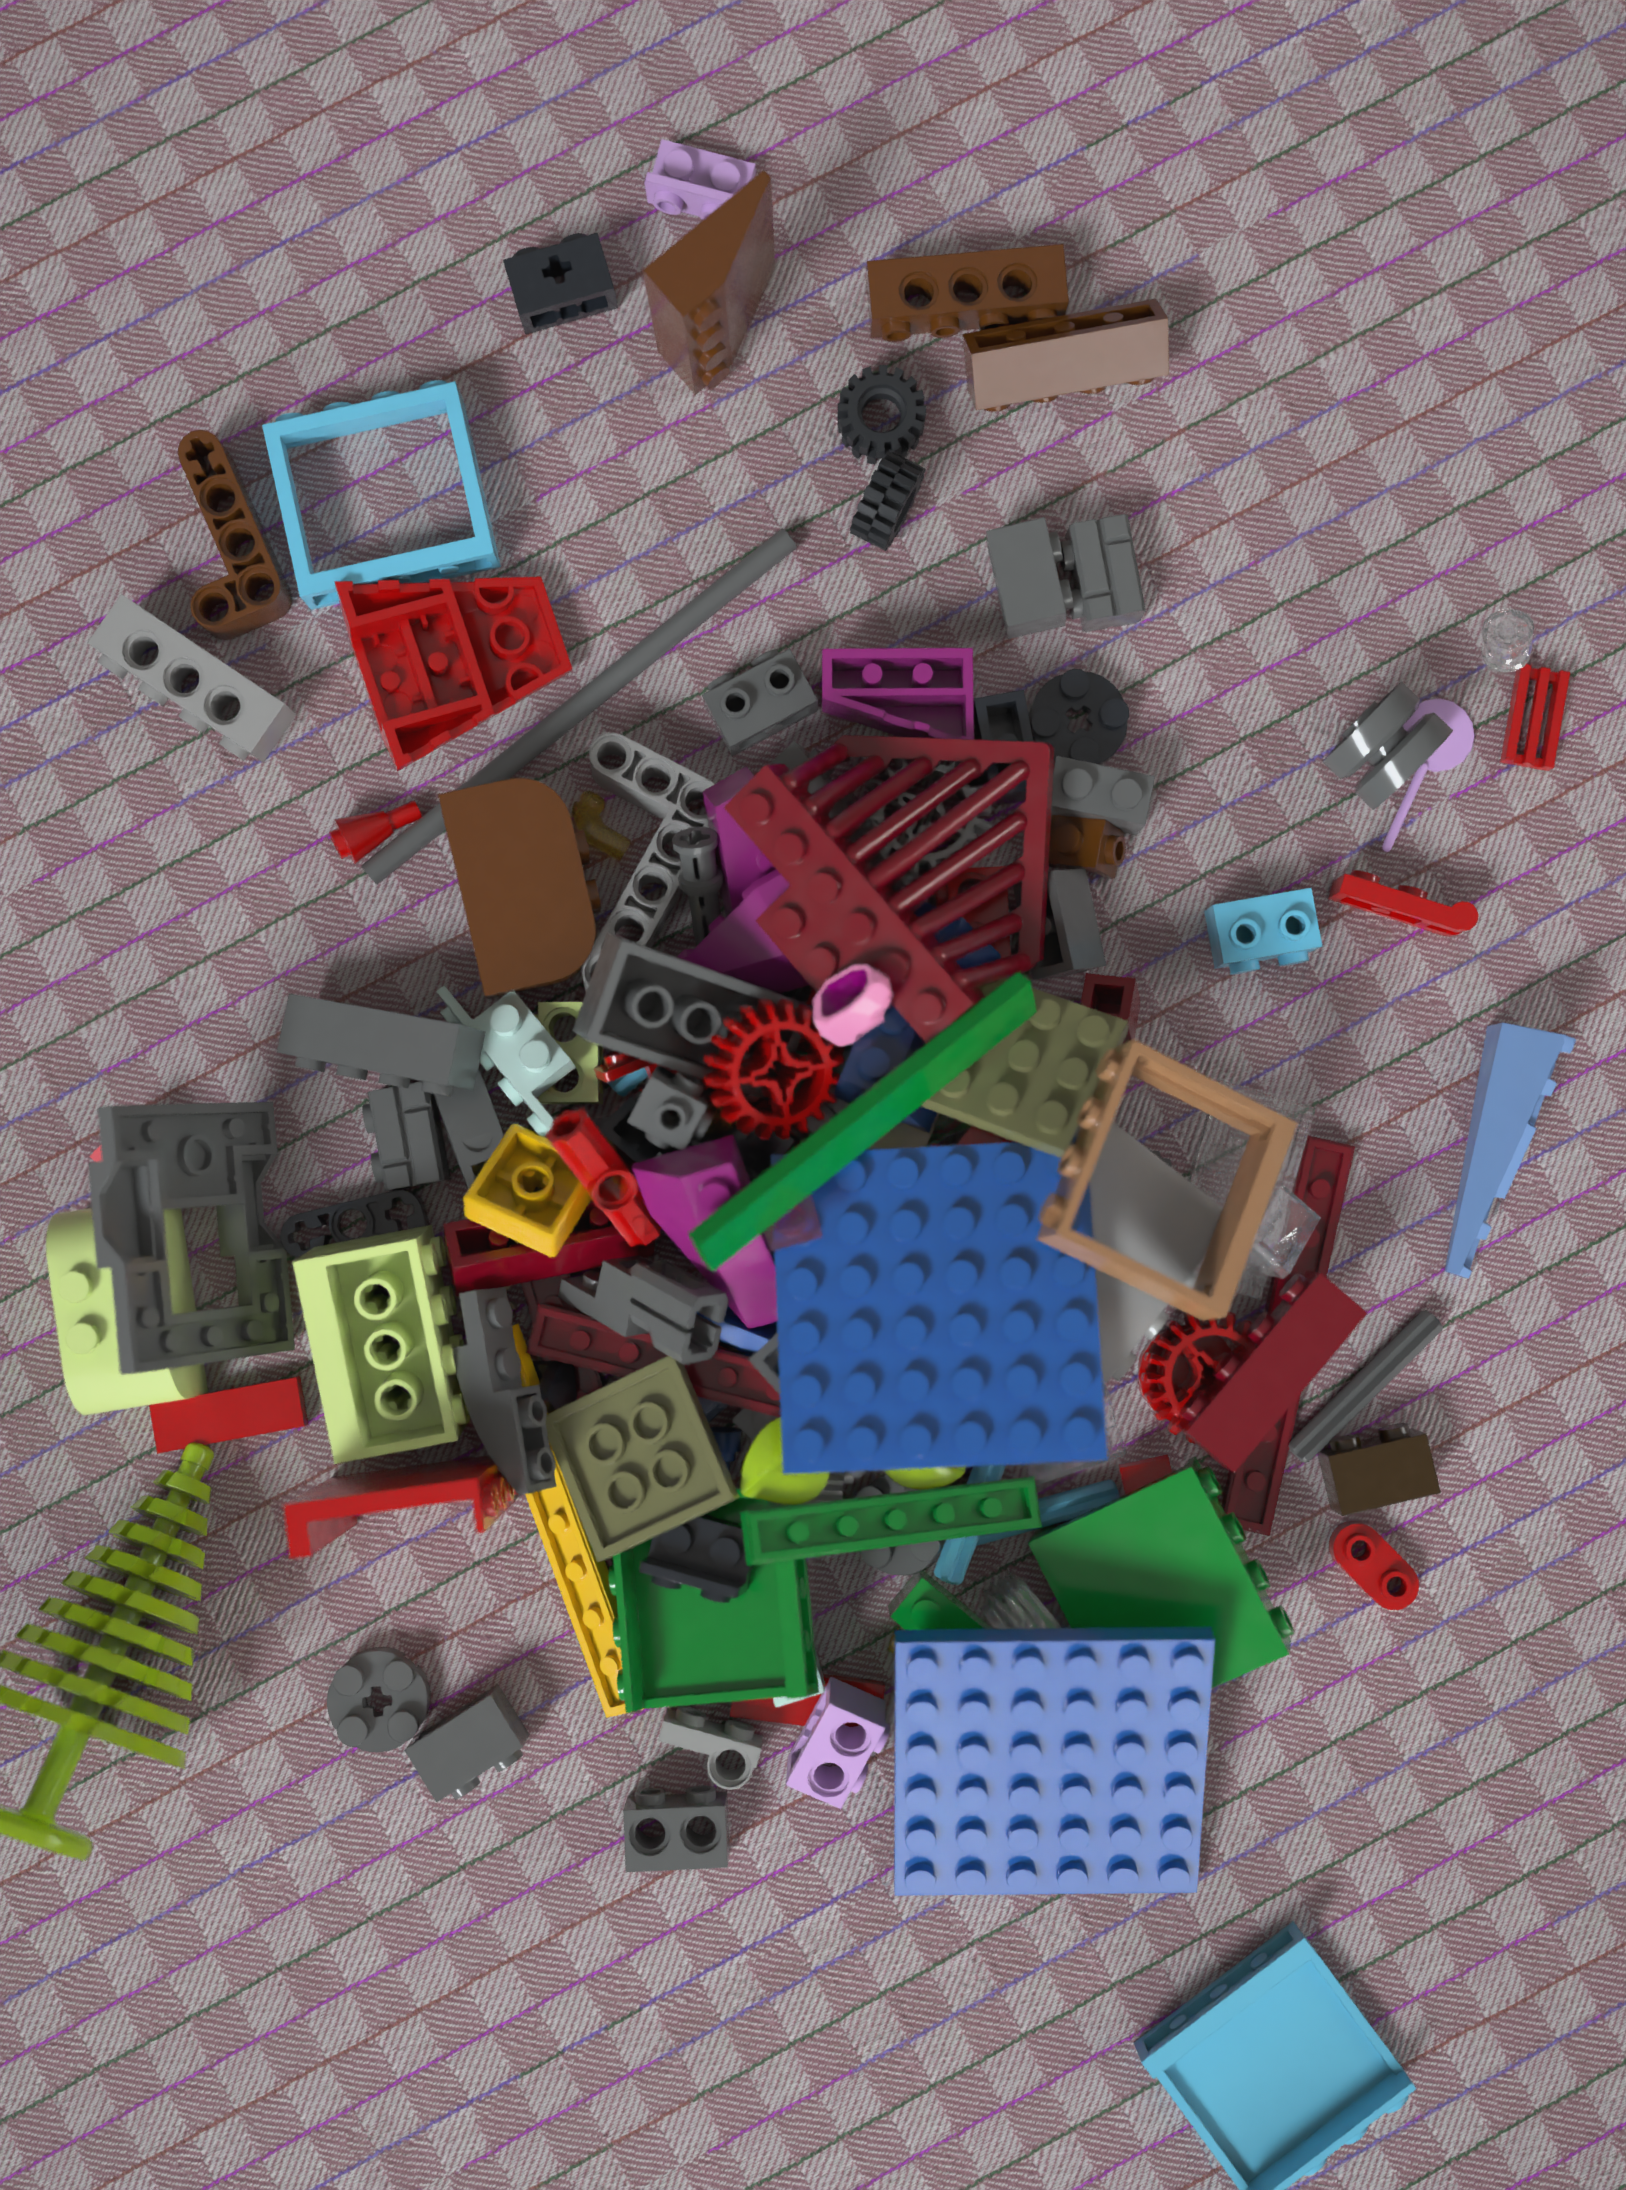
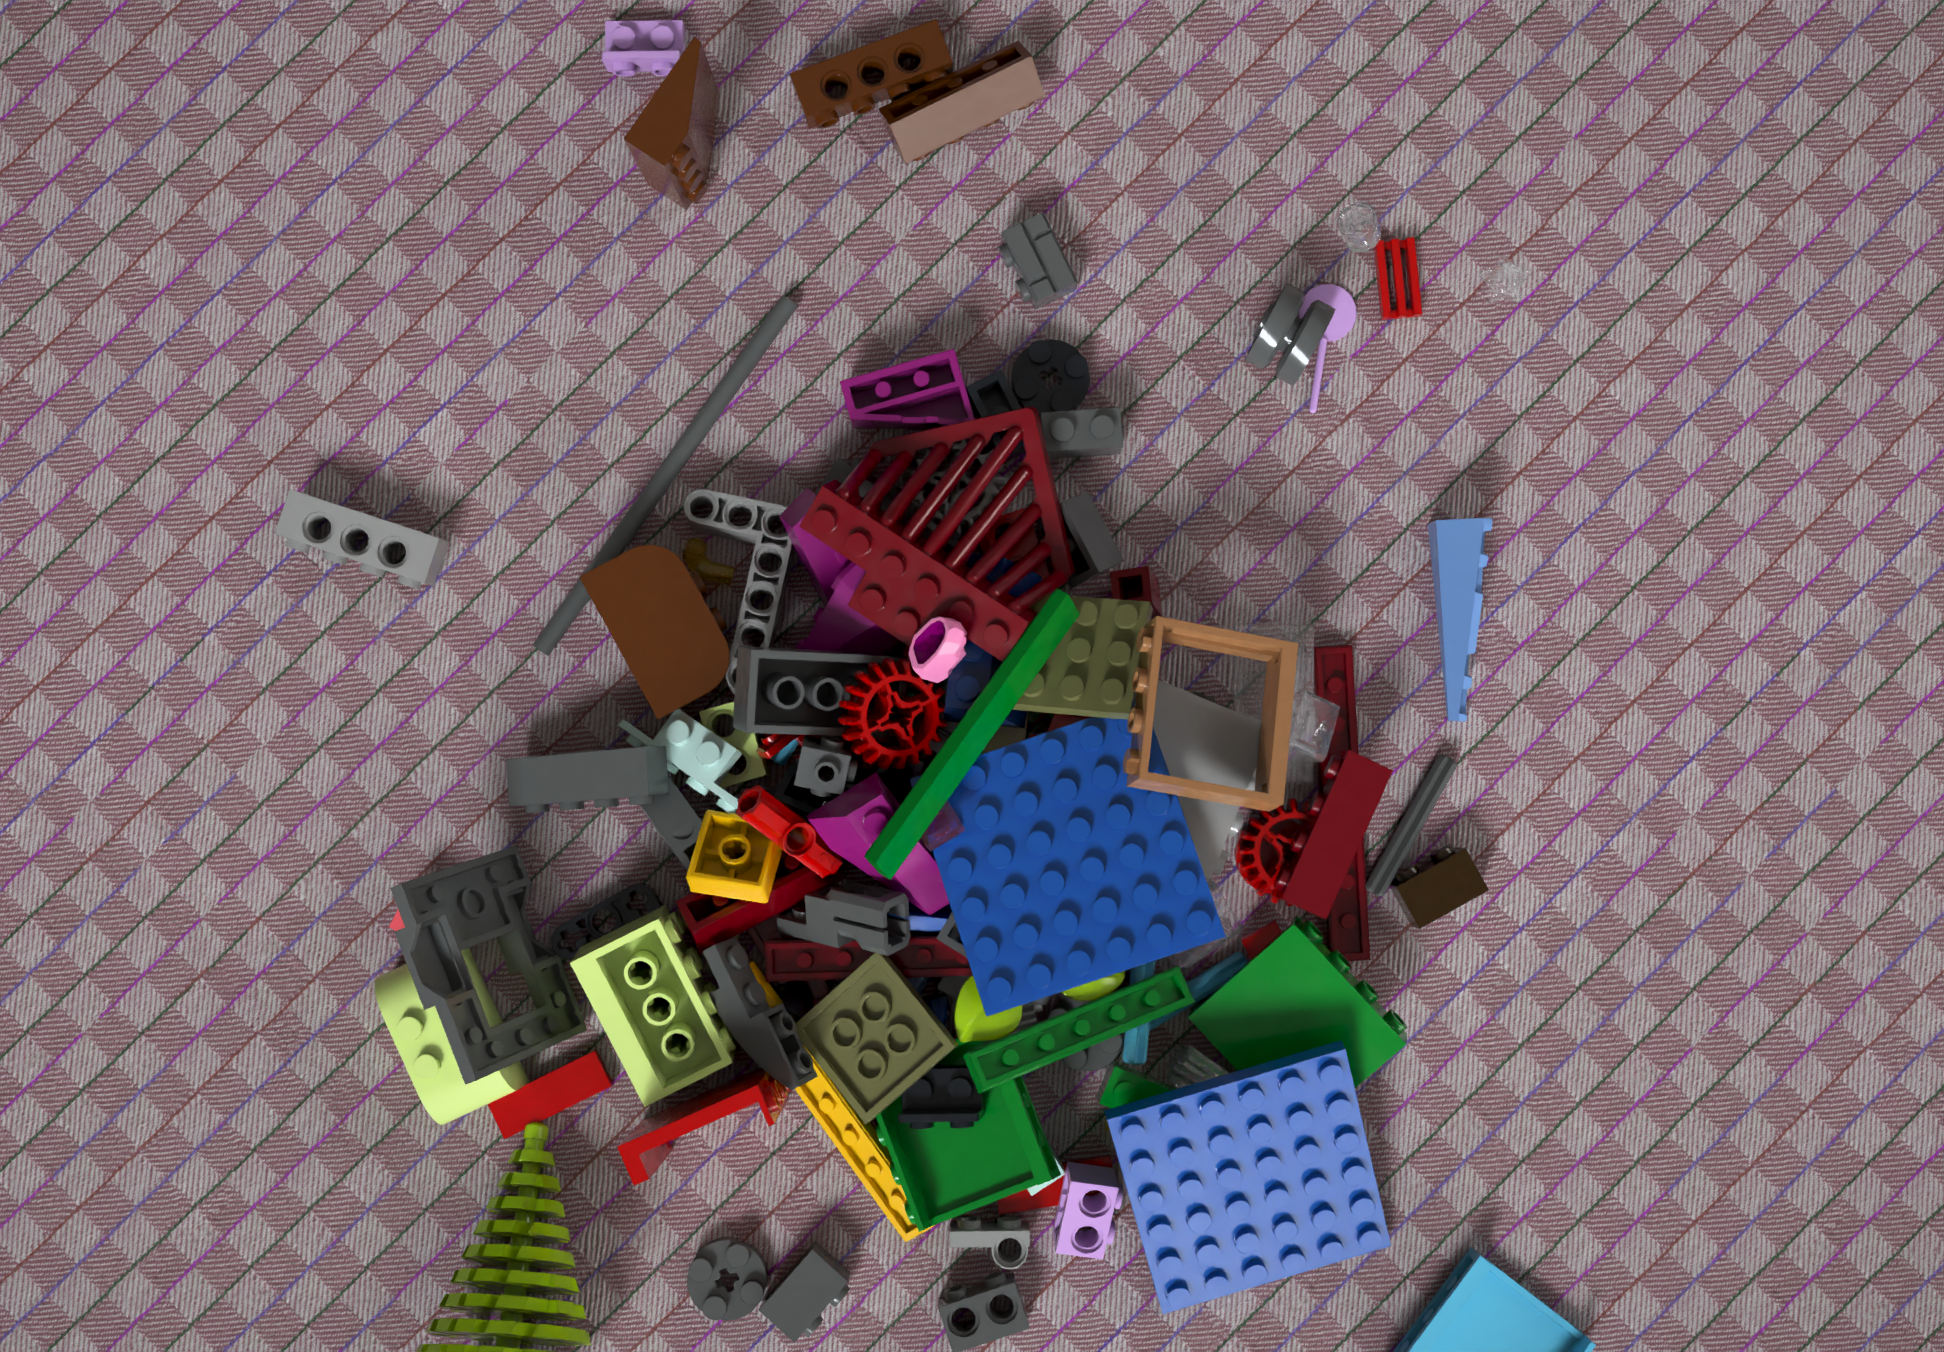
camera: 20 degrees left, 0 degrees up
(229, 531) = (357, 416): reddish brown beam -> none
(364, 832) = (527, 619): red cone -> none
(382, 410) = (495, 411): medium azure window -> none
(406, 1137) = (627, 843): dark grey brick -> none
(449, 654) = (554, 464): red wedge -> none
(582, 294) = (552, 173): black brick -> none
(699, 876) = (795, 582): dark grey pin -> none
(759, 700) = (803, 432): dark grey brick -> none
(887, 500) = (857, 252): black tyre -> none
(888, 387) = (828, 164): black tyre -> none
(1027, 577) = (981, 282): dark grey brick -> none
(1086, 845) = (1083, 473): reddish brown bracket -> none
(1262, 930) = (1236, 499): medium azure brick -> none
(1375, 1566) = (1457, 959): red plate -> none
(1402, 905) = (1336, 451): red plate -> none

